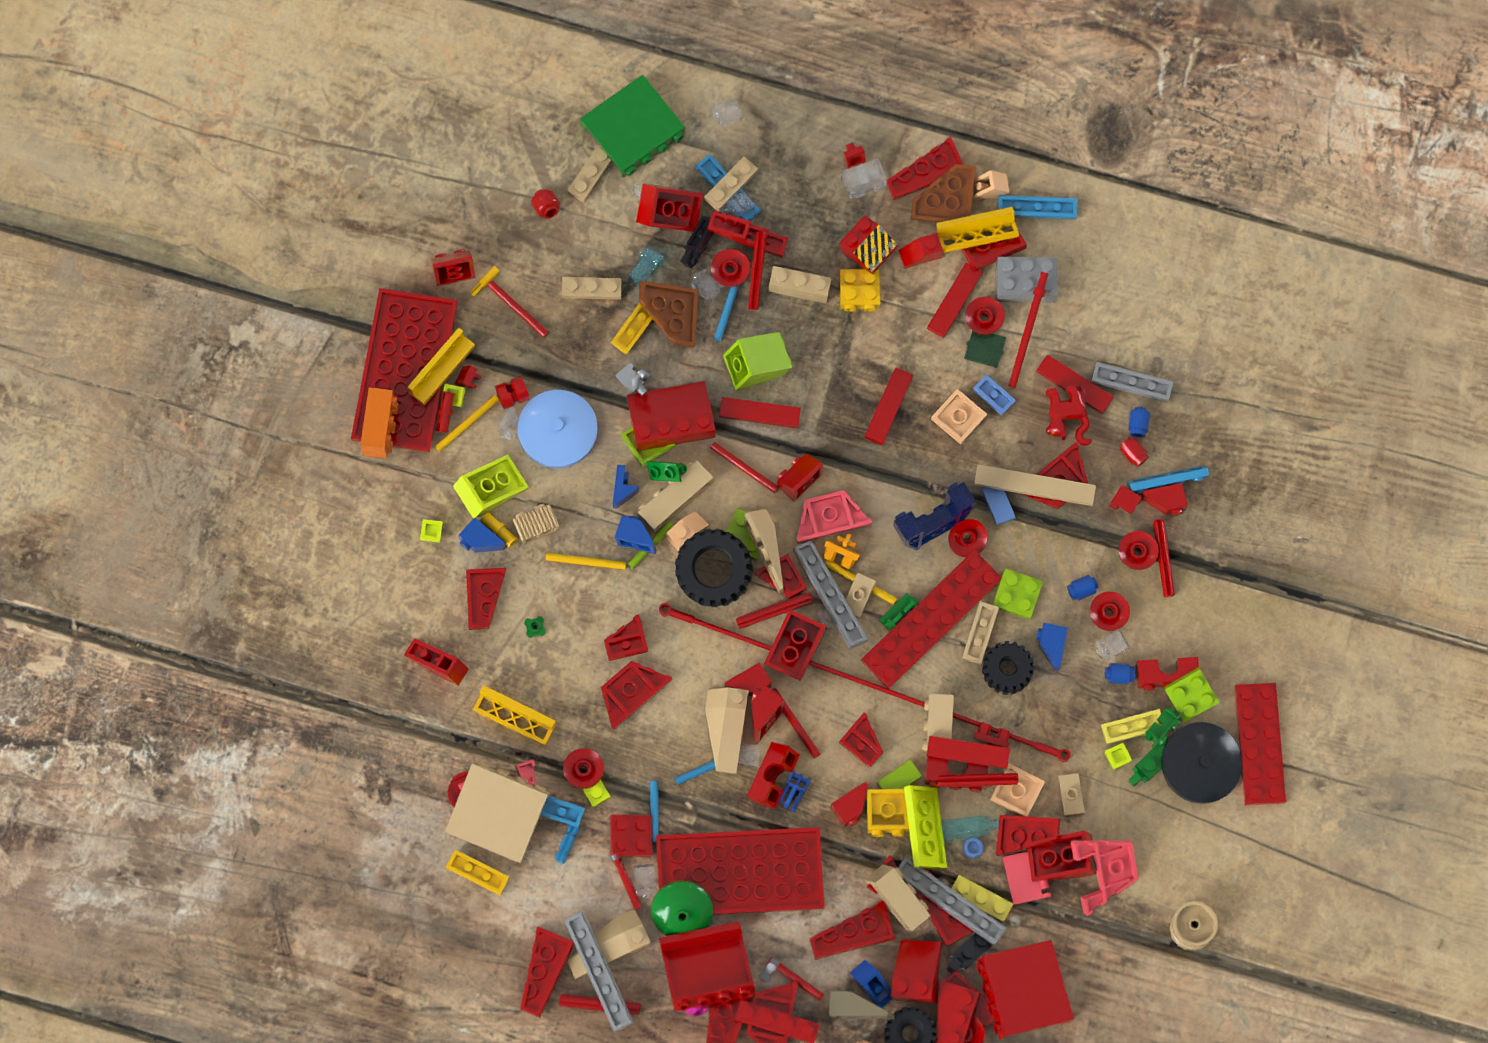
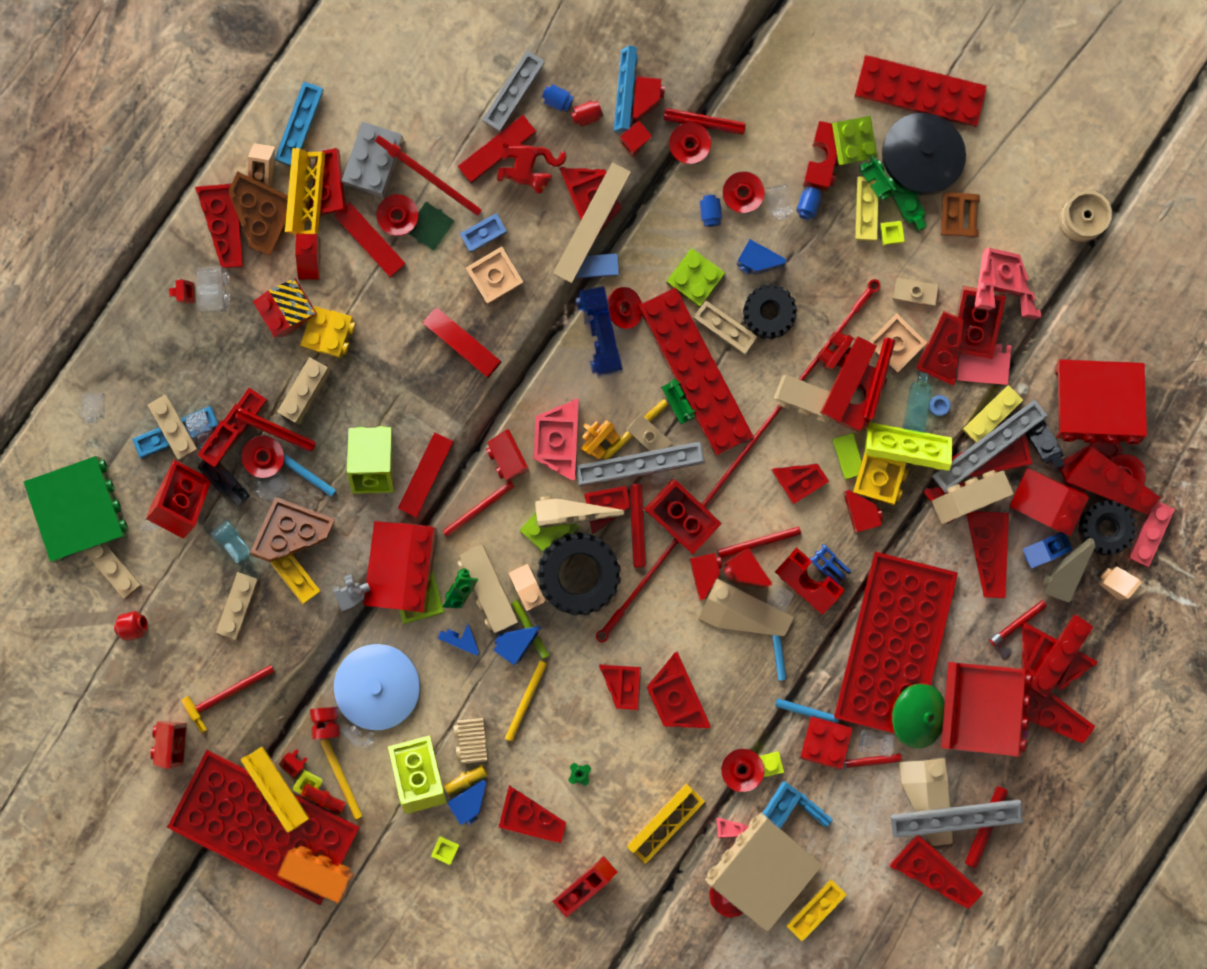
camera: 65 degrees left, 10 degrees up
(1156, 806) = (953, 212): none -> dark orange plate

